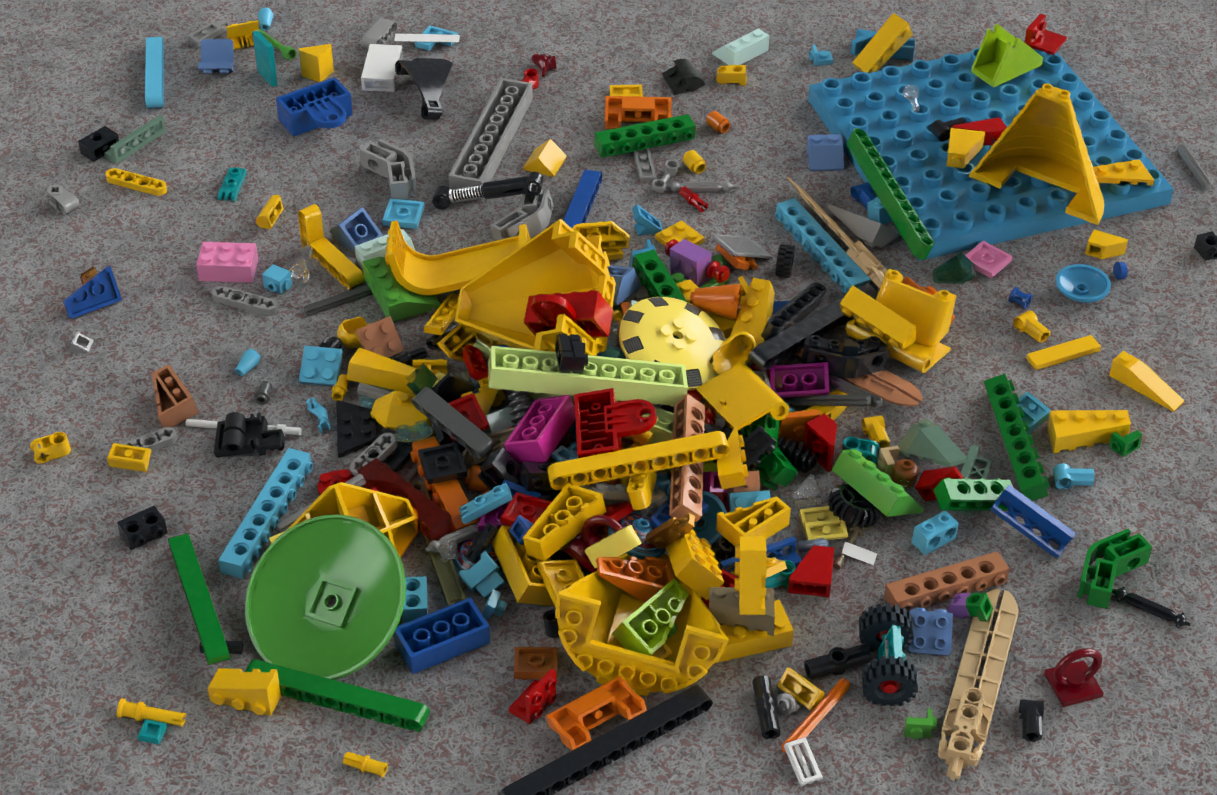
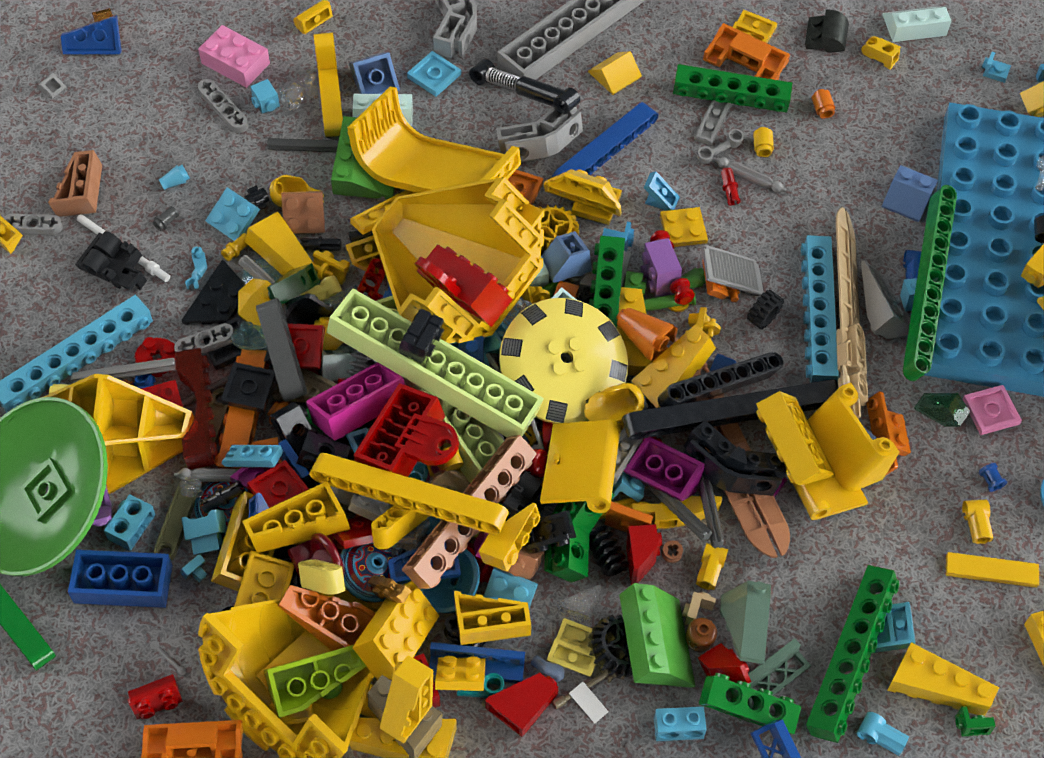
camera: 30 degrees right, 15 degrees up
(534, 662) = (180, 657): dark orange plate -> none
(841, 432) = (672, 544): none -> nougat bush
(863, 446) = (681, 583): teal piece -> none

